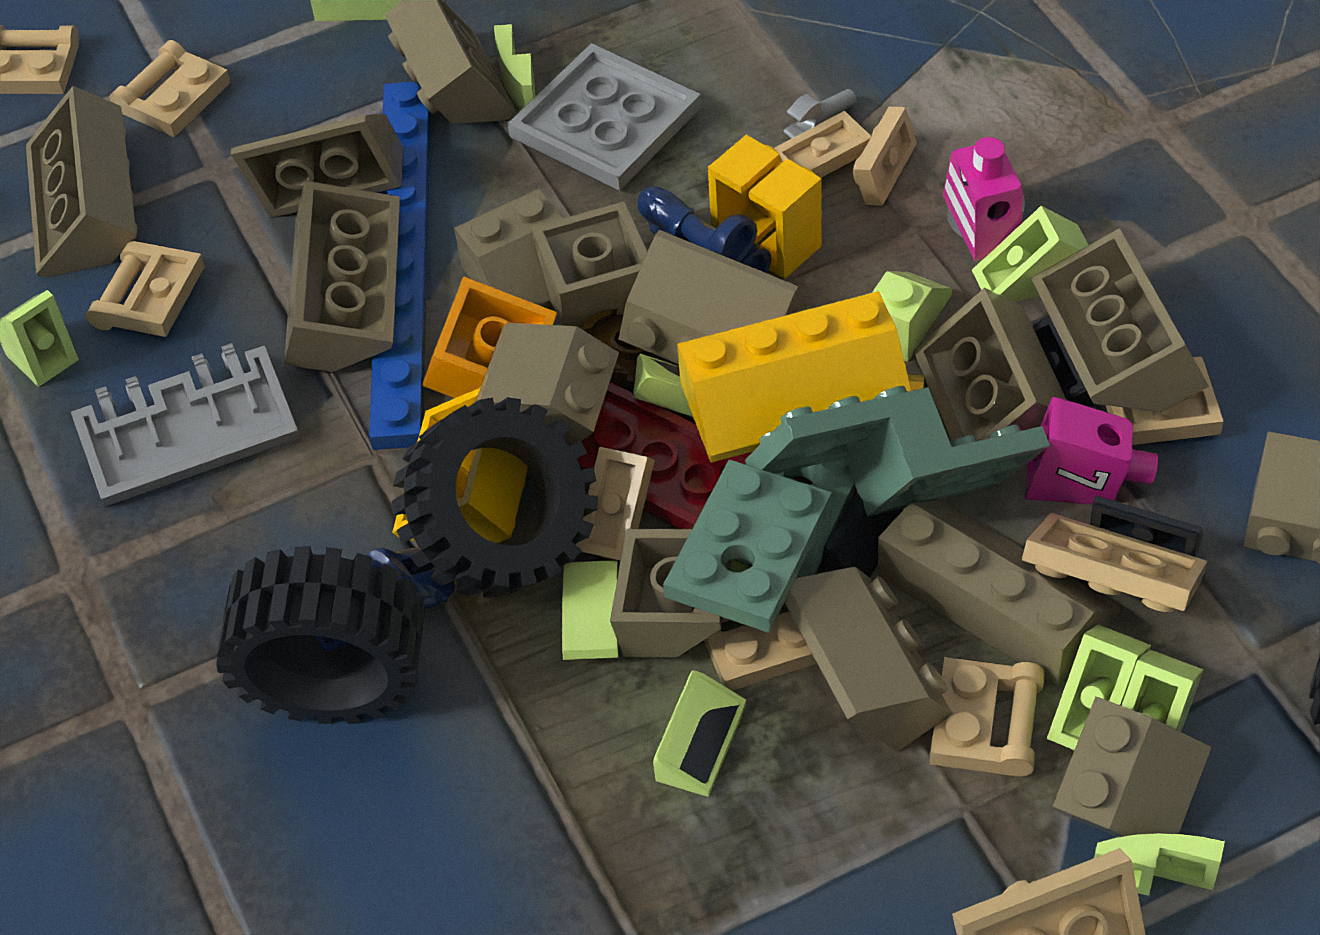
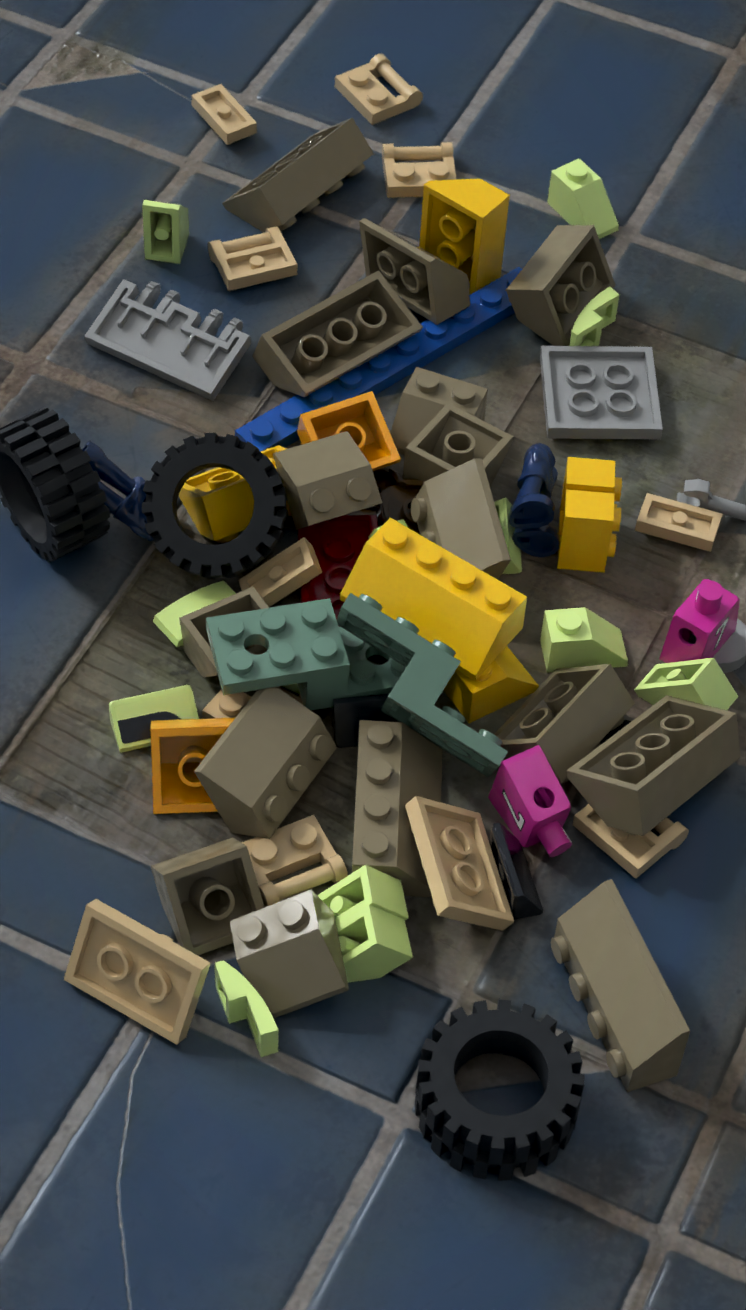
camera: 45 degrees right, 0 degrees up
(319, 72) = (465, 227): none -> yellow slope
(791, 729) = (175, 754): none -> light orange slope
(884, 156) = (704, 558): tan plate -> none
(983, 811) = (206, 892): none -> dark tan slope

